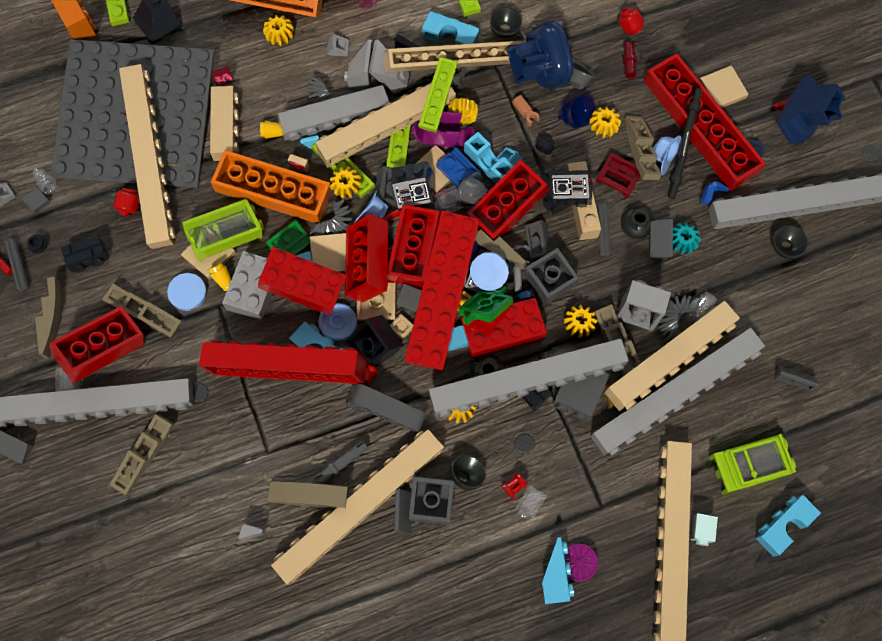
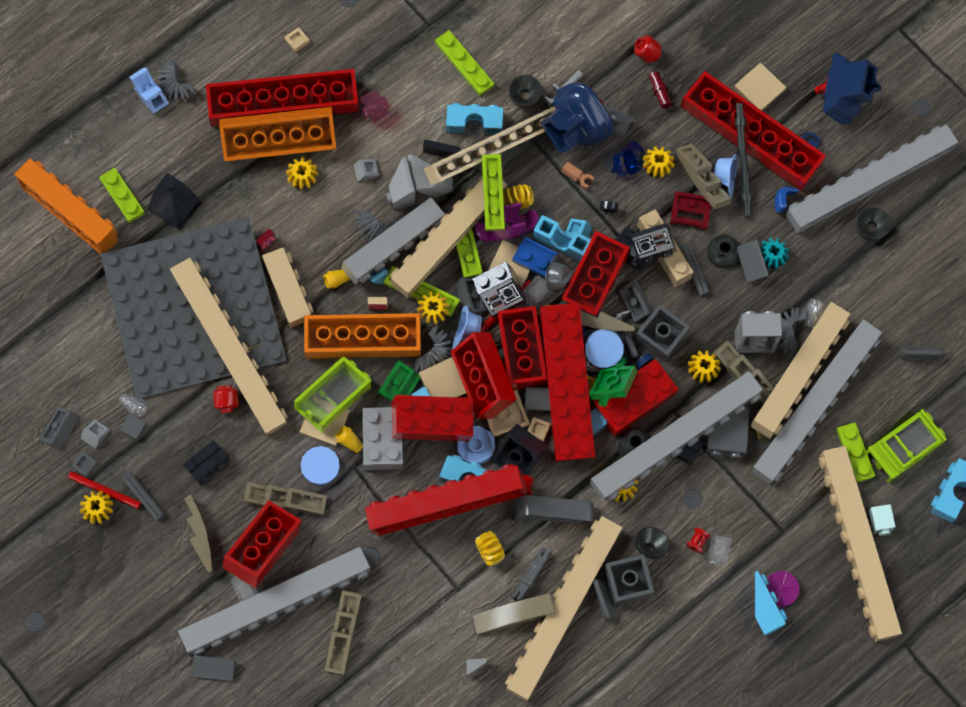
camera: 20 degrees left, 0 degrees up
(36, 244) = (154, 469): black plate -> none
(309, 423) = (490, 548): none -> yellow gear
(701, 456) = (860, 463): none -> lime plate

